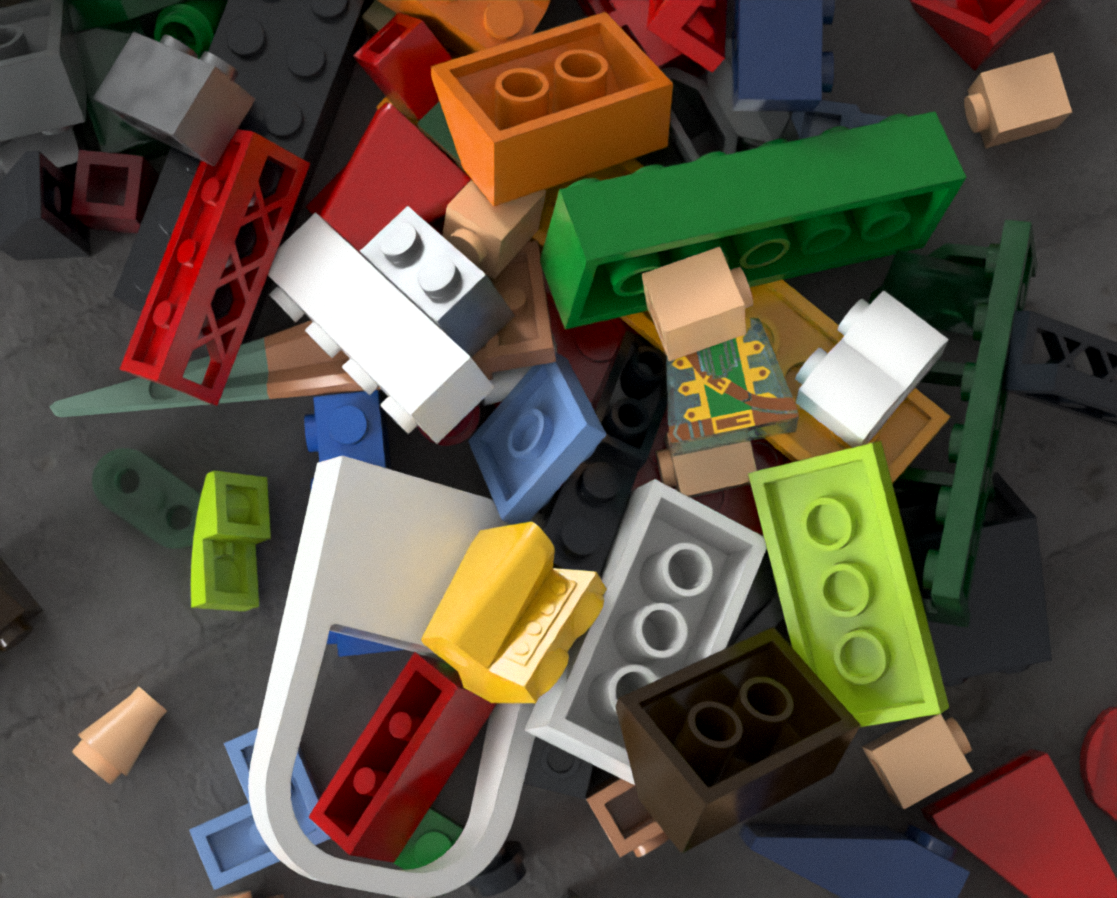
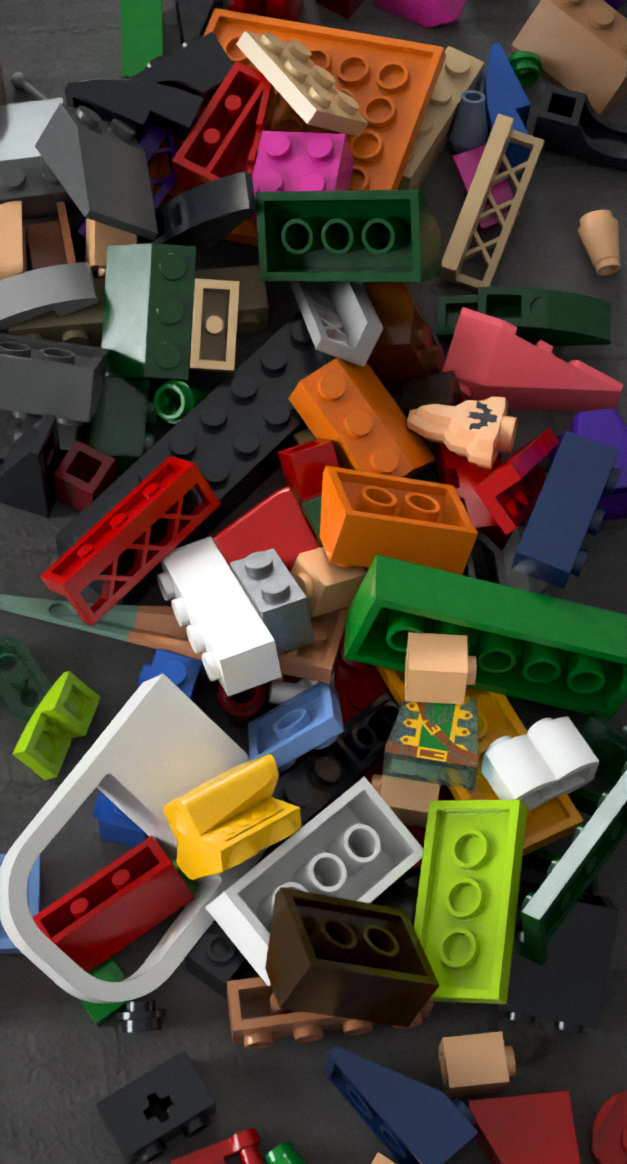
camera: 15 degrees right, 20 degrees down
(176, 95) = (153, 427): flat silver brick -> none

